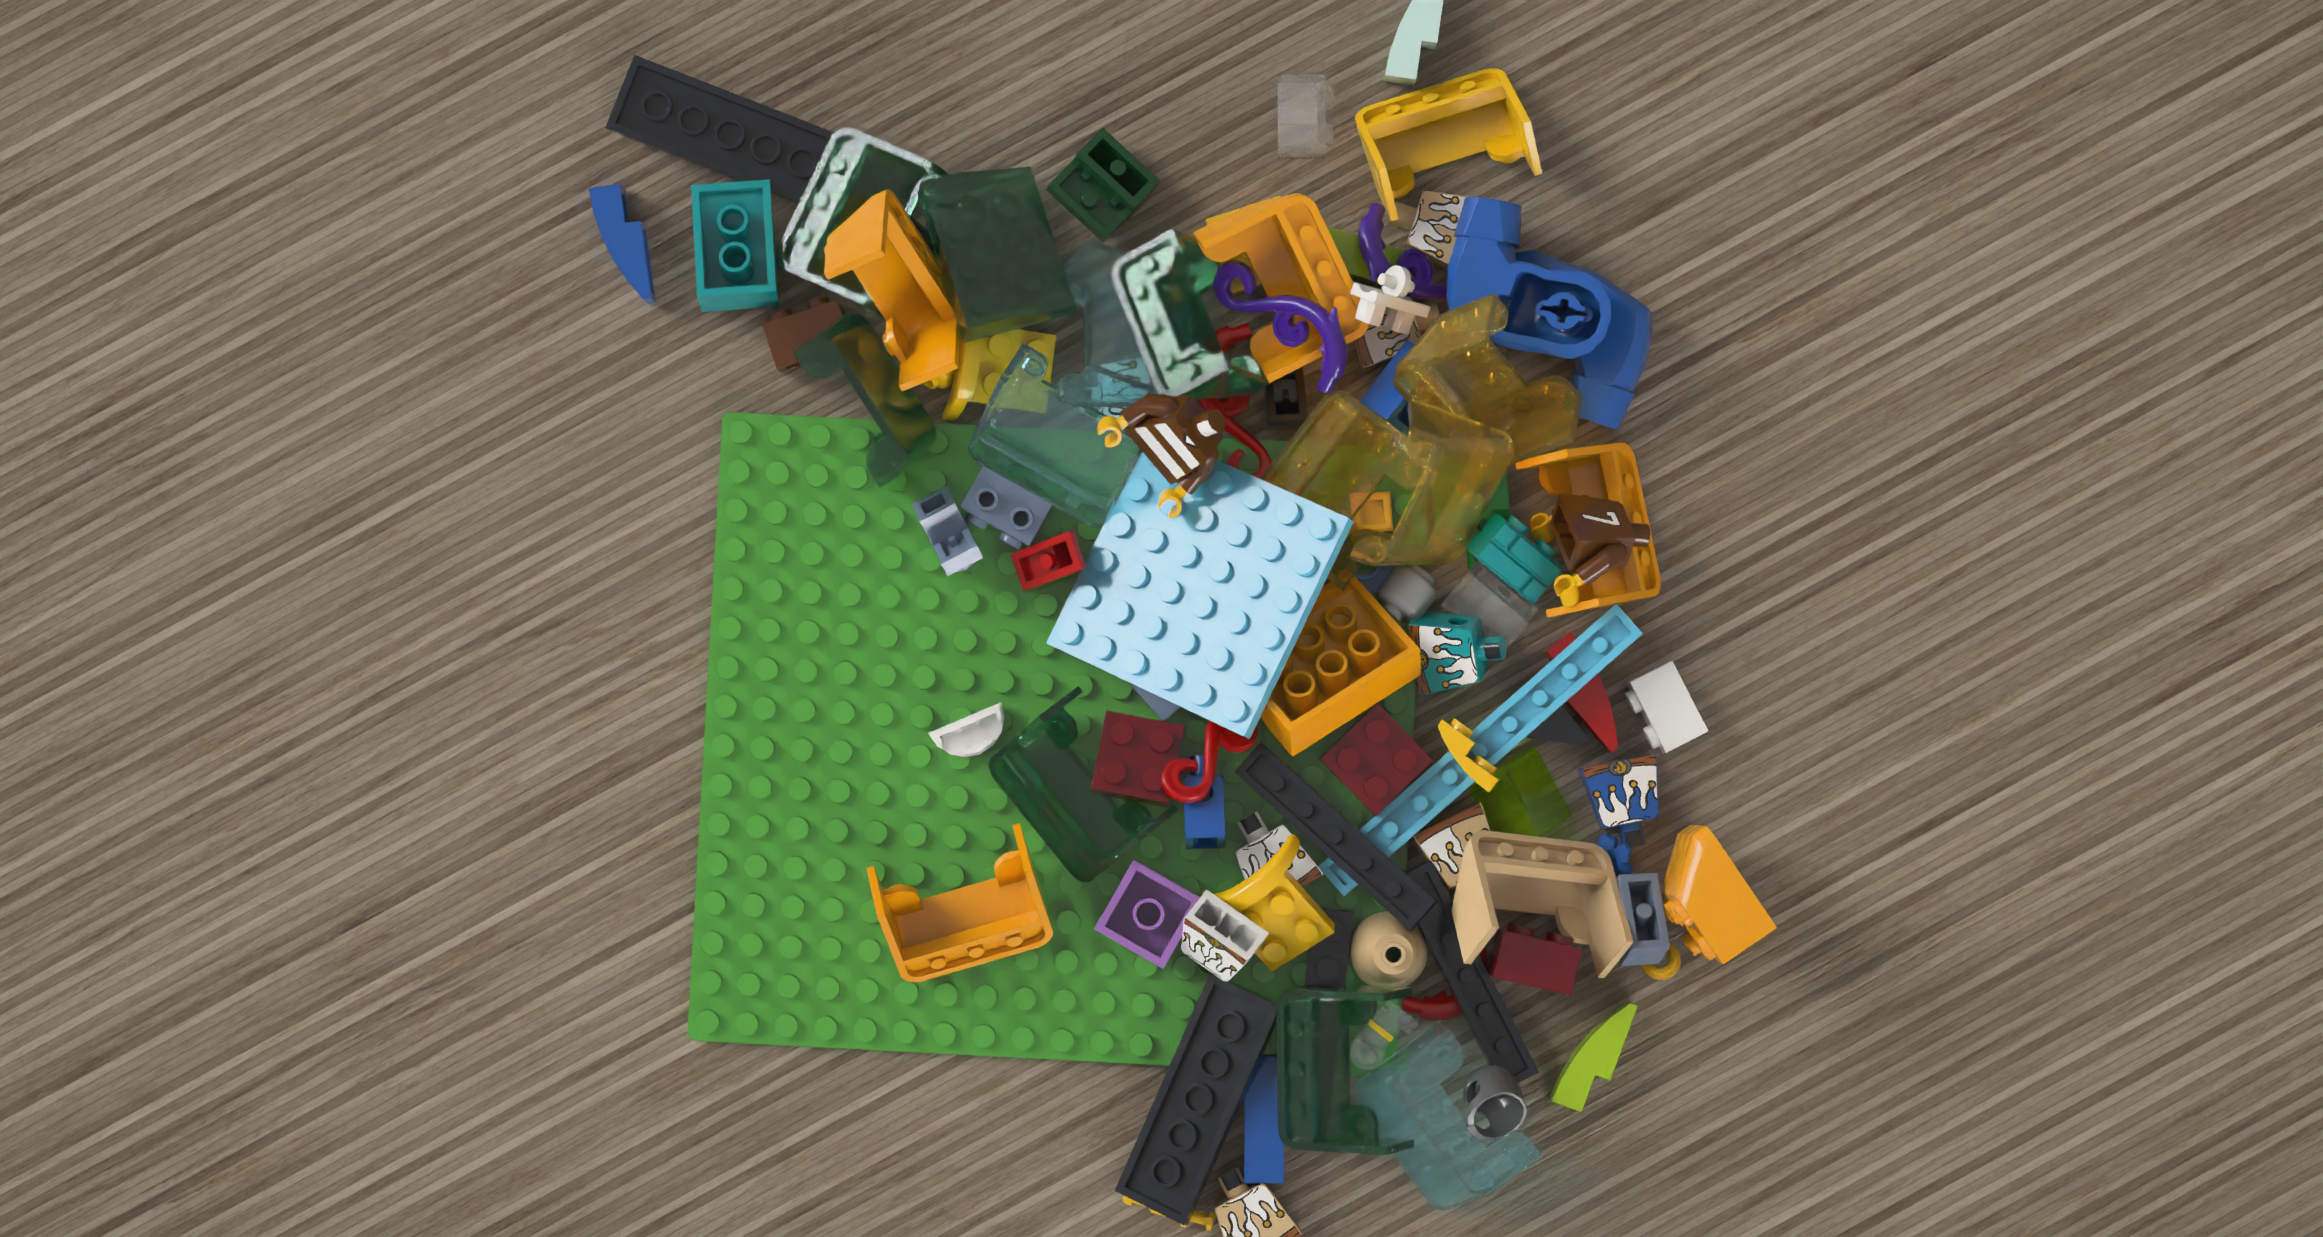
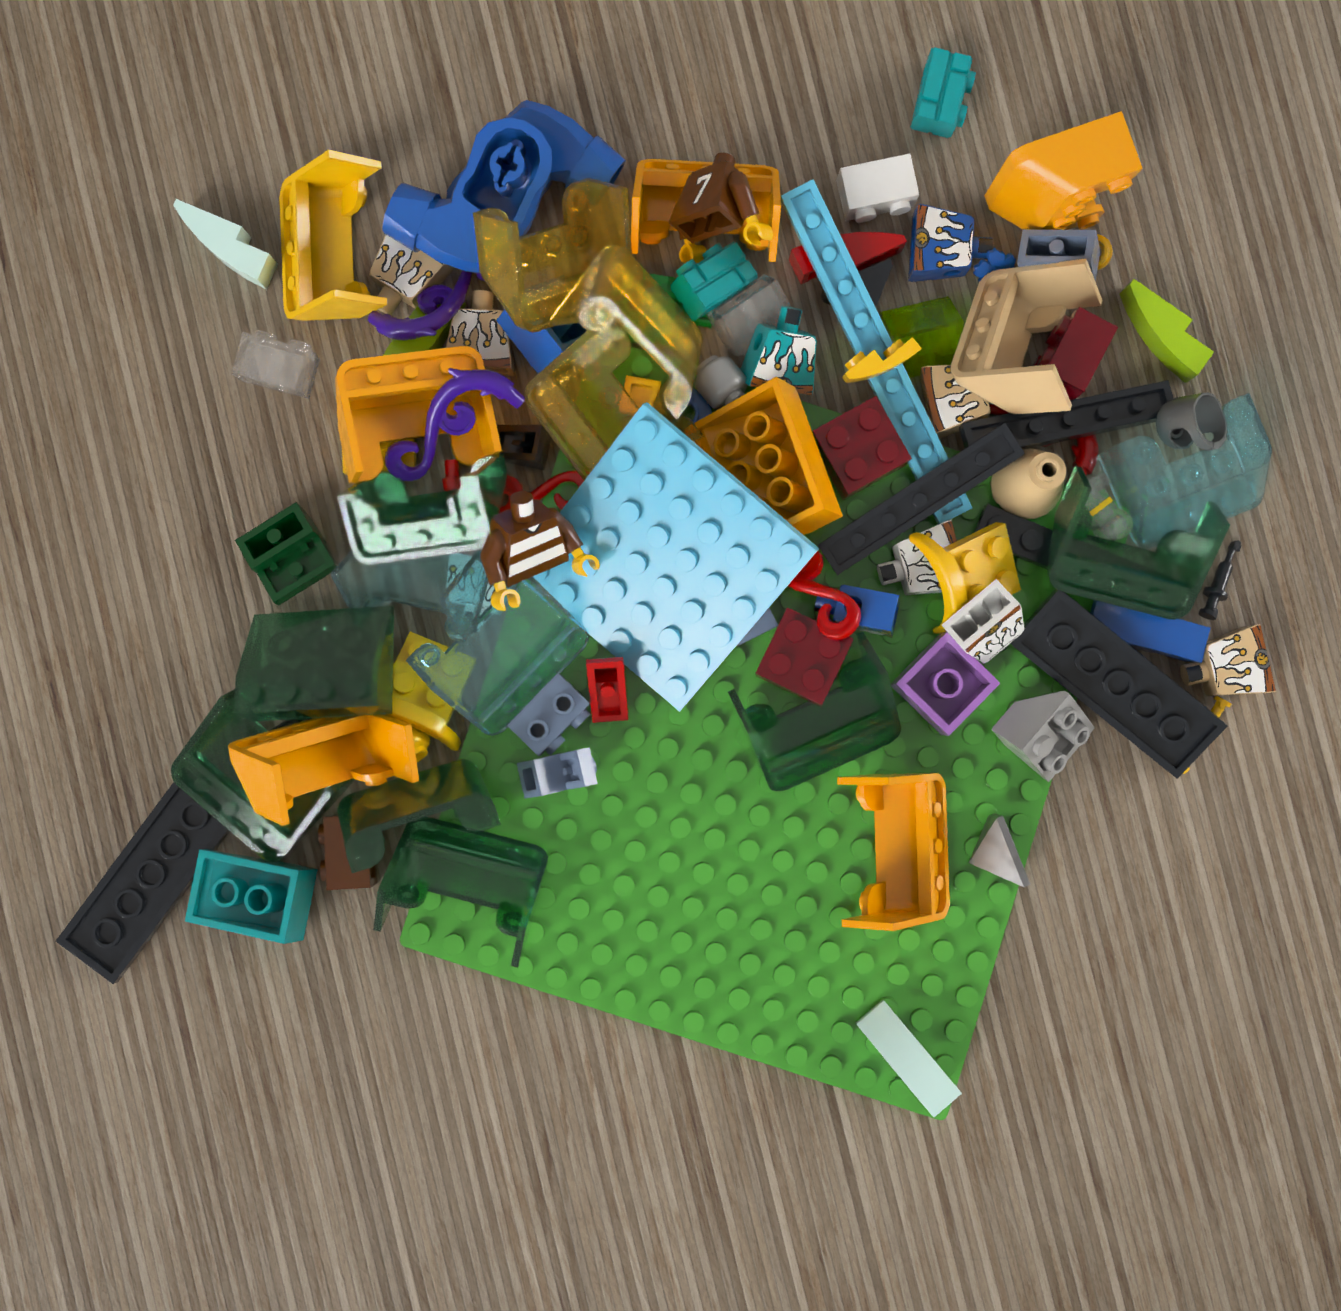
camera: 85 degrees left, 0 degrees up
(624, 239) = (217, 993): blue slope -> none
(746, 978) = (908, 1058): none -> light aqua slope
(823, 465) = (467, 867): none -> clear green windscreen
(971, 734) = (742, 799): white tile -> none
(984, 1017) = (998, 853): none -> flat silver slope
(1126, 1035) = (1044, 731): none -> light grey slope
(1338, 1187) = (1216, 591): none -> black piece
(1402, 310) = (459, 324): white hips -> none
(1789, 750) = (942, 92): none -> teal brick

